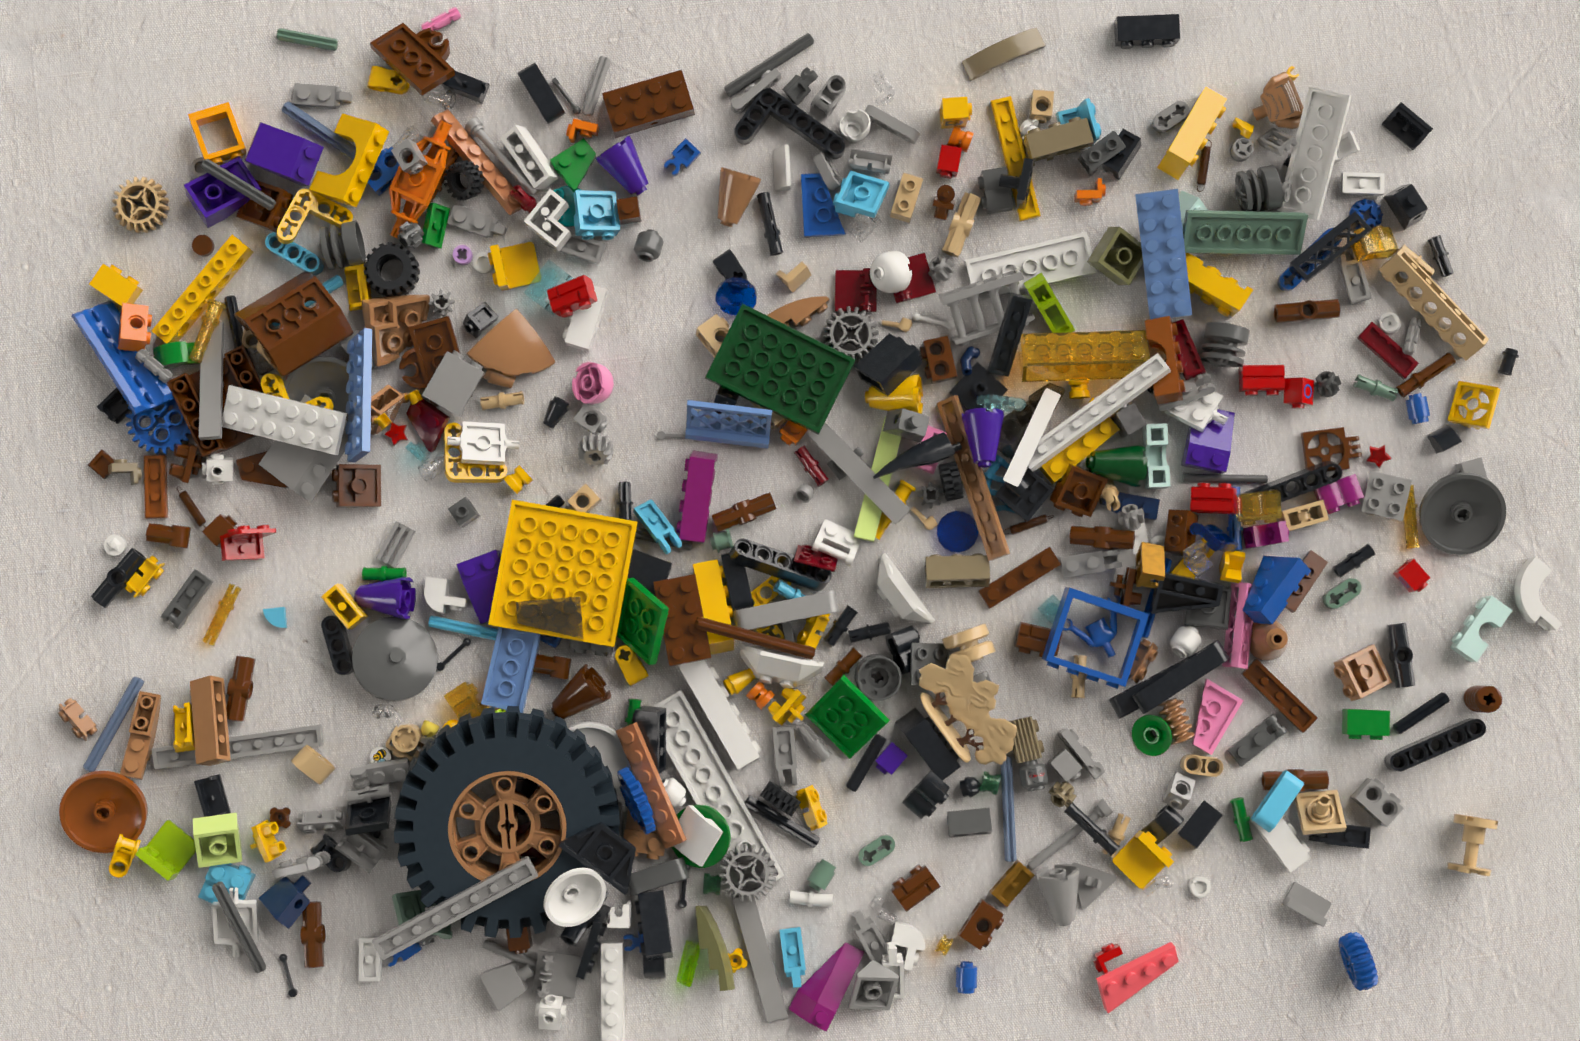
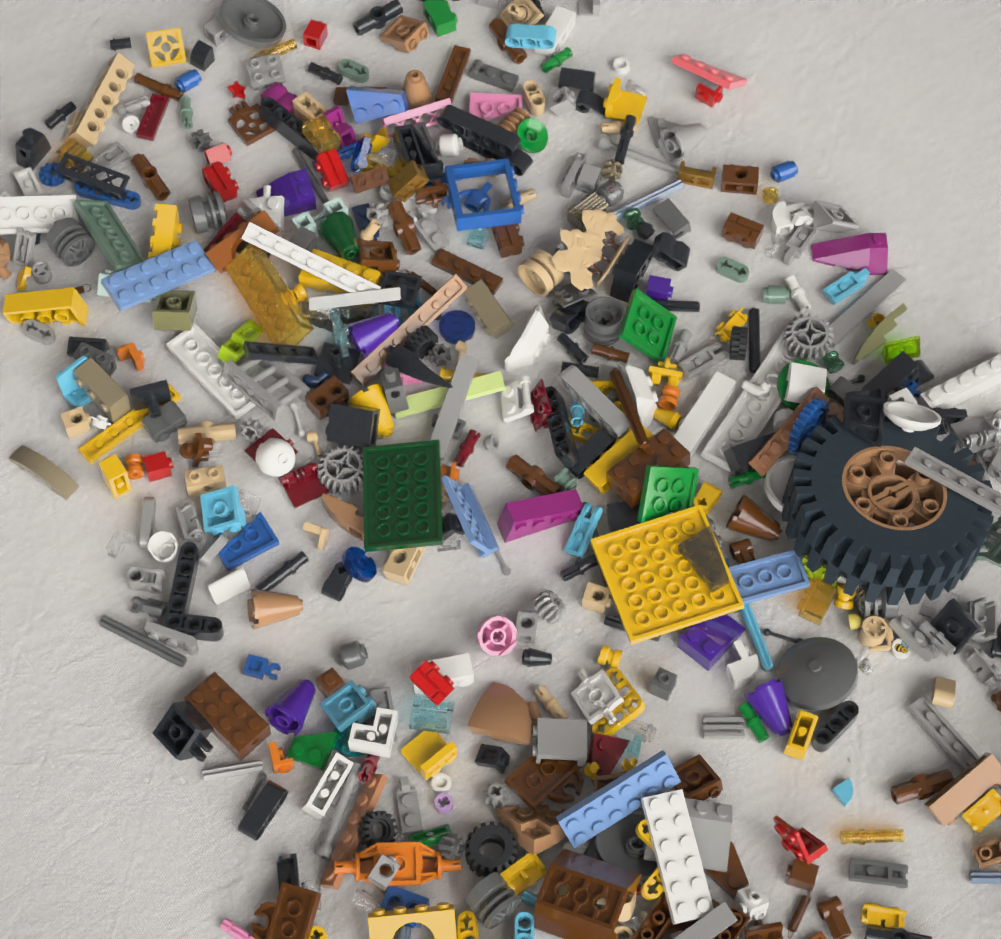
camera: 120 degrees left, 25 degrees down
(647, 55) = (184, 732): none -> black hinge
(718, 785) = (760, 389): none -> white arm

